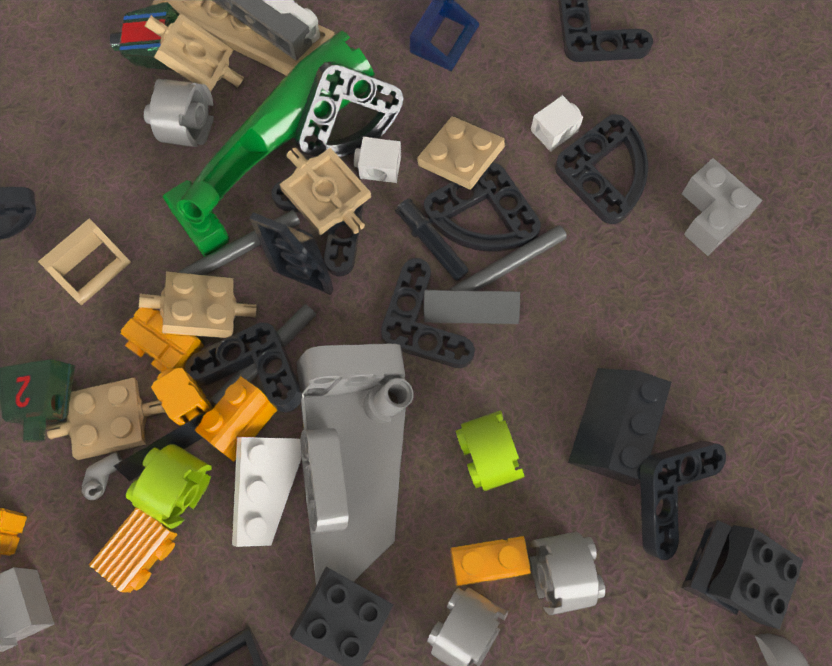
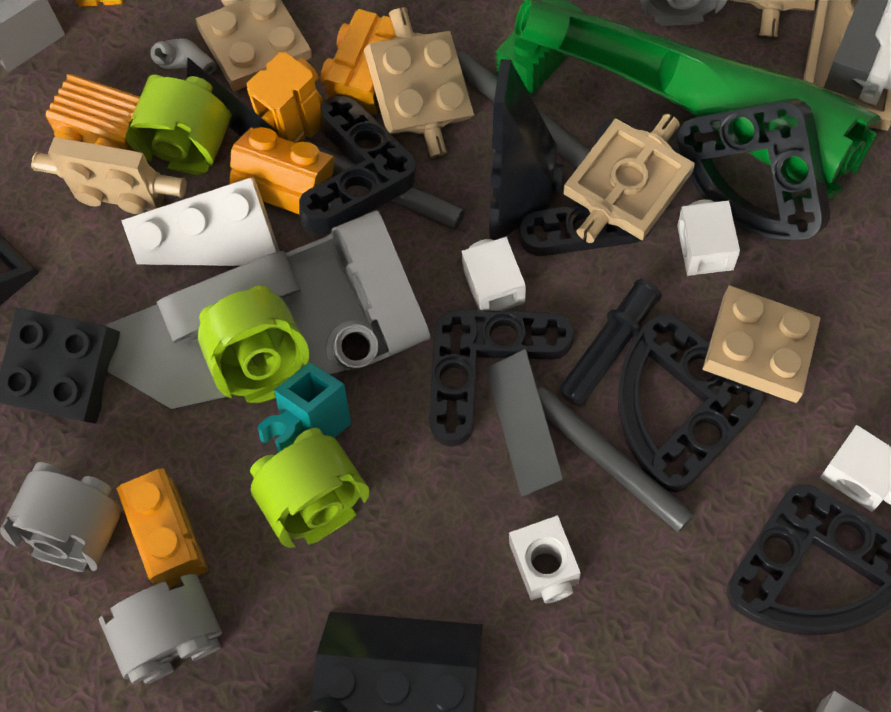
camera: 80 degrees right, 5 degrees down
(191, 557) = (108, 175): none -> tan plate
(363, 296) = (493, 275): none -> white brick
(374, 465) = (251, 343): none -> lime brick
(432, 439) = (306, 402): none -> teal brick
(559, 327) = (545, 538): none -> white brick

